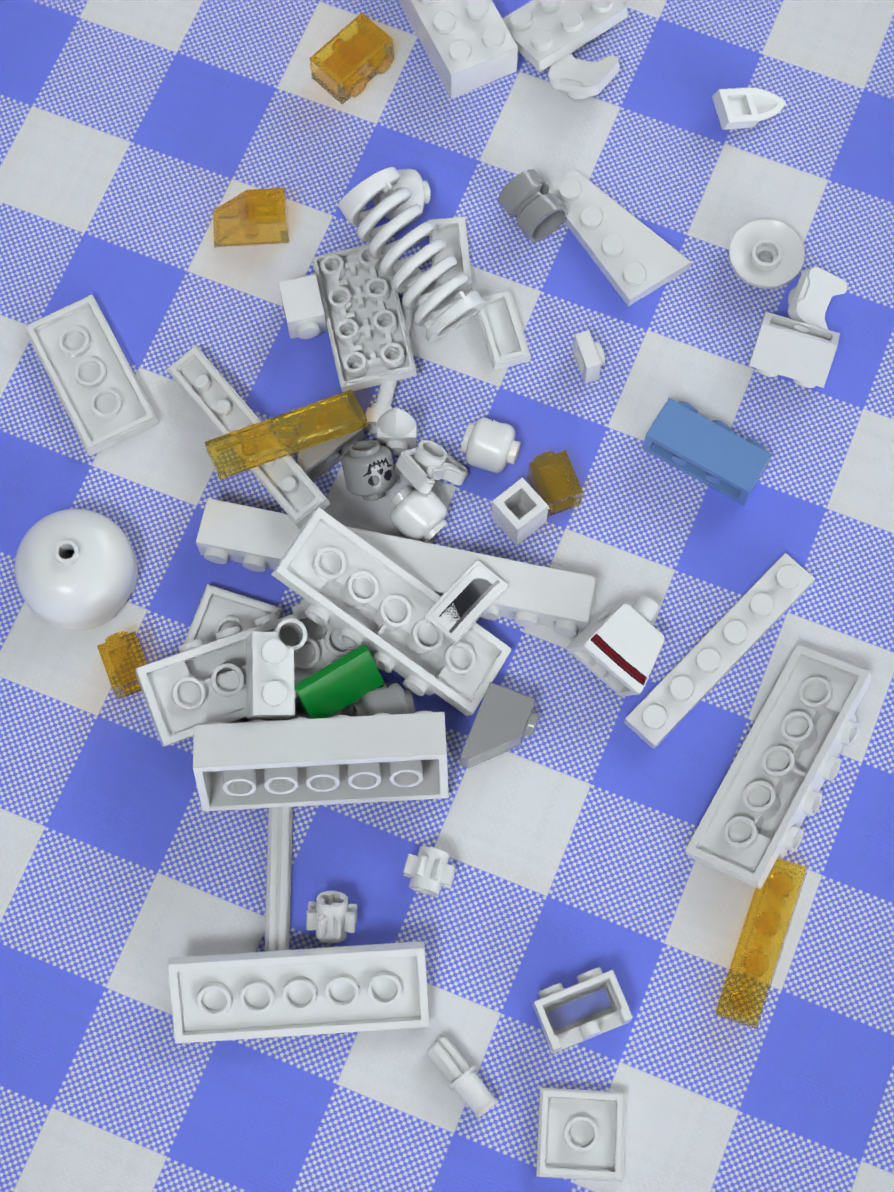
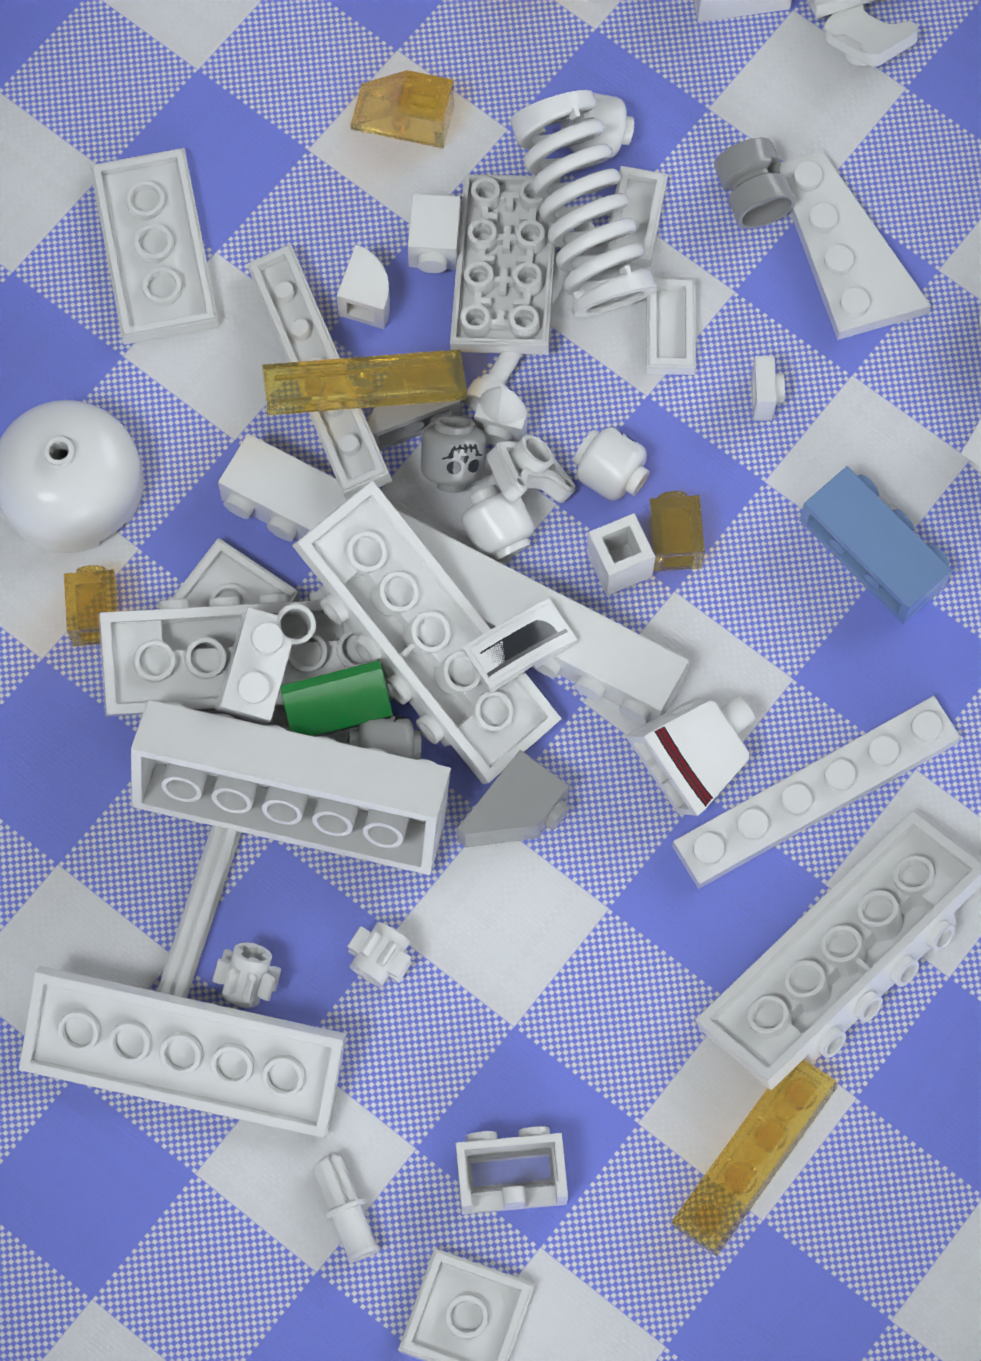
camera: 15 degrees right, 0 degrees up
(263, 364) = (364, 290): none -> white brick

